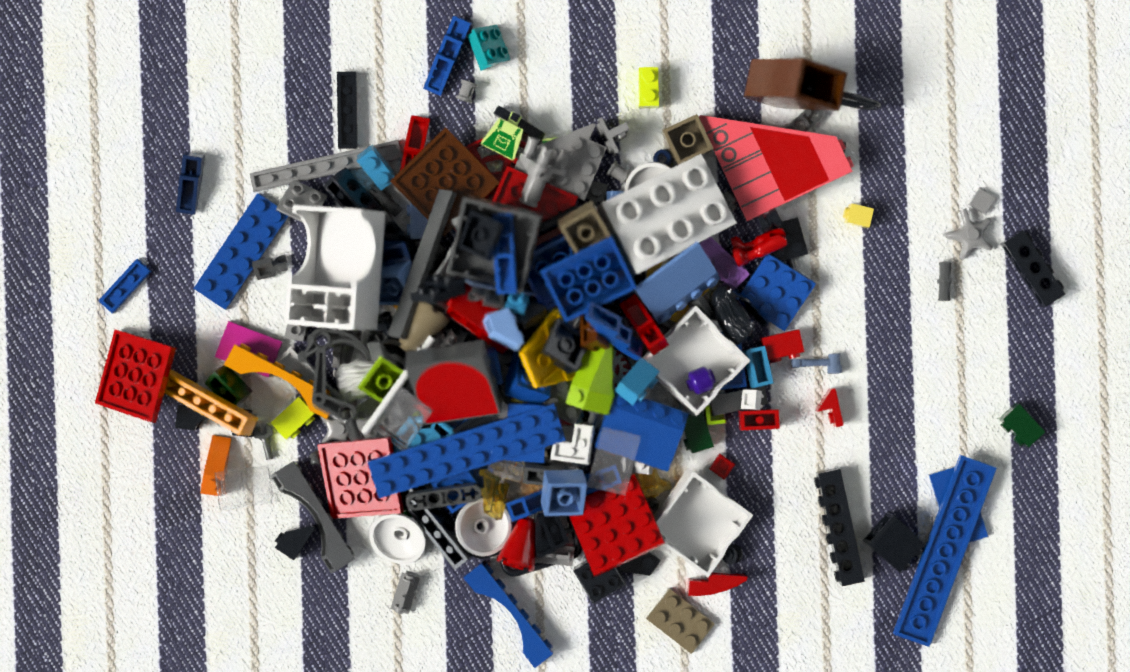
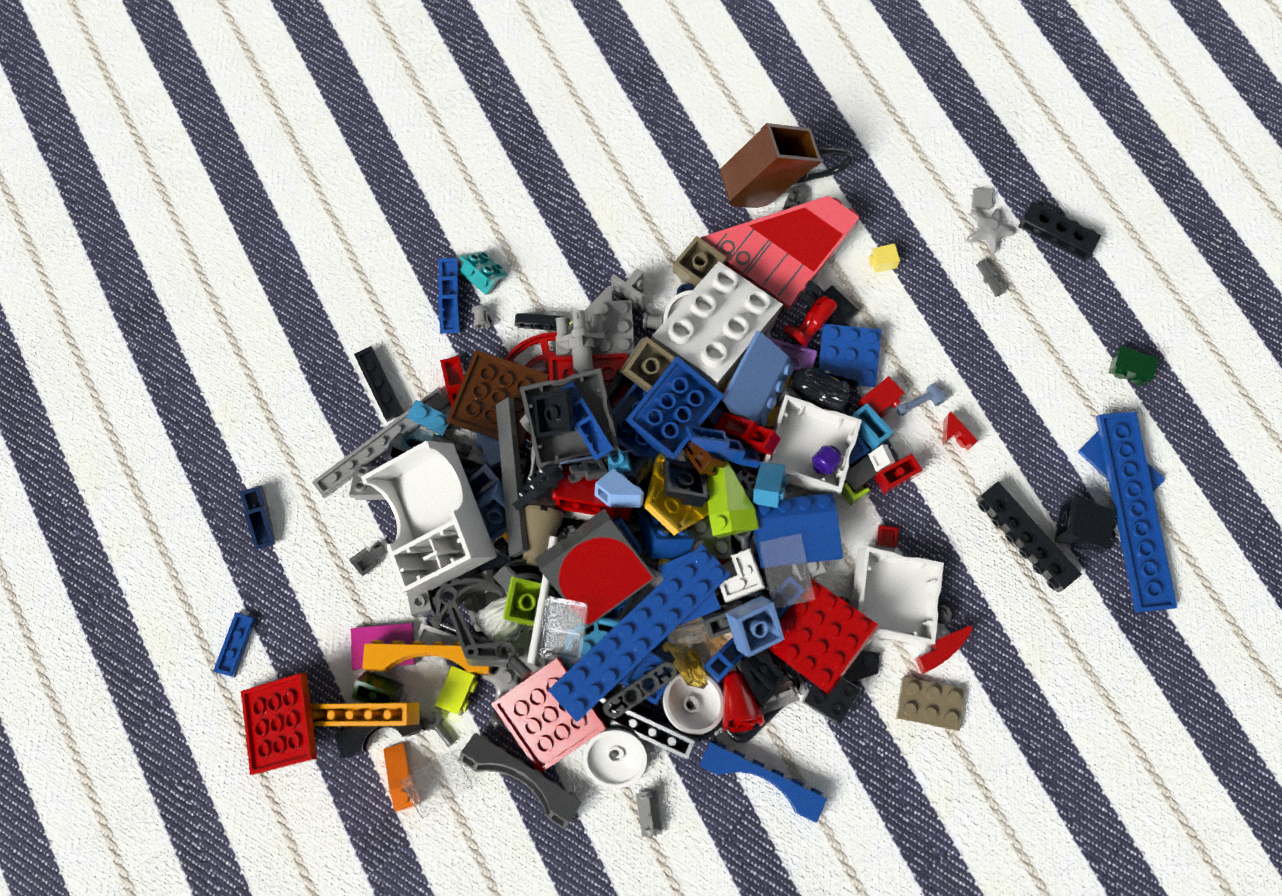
camera: 25 degrees left, 15 degrees down
(243, 245) = (331, 569): blue plate -> none
(294, 540) = (512, 814): black slope -> none
(505, 137) = (534, 334): torso -> none
(648, 87) = (642, 239): neon yellow brick -> none
(653, 484) = (834, 581): clear yellow brick -> none
(697, 433) = (850, 515): dark green brick -> none

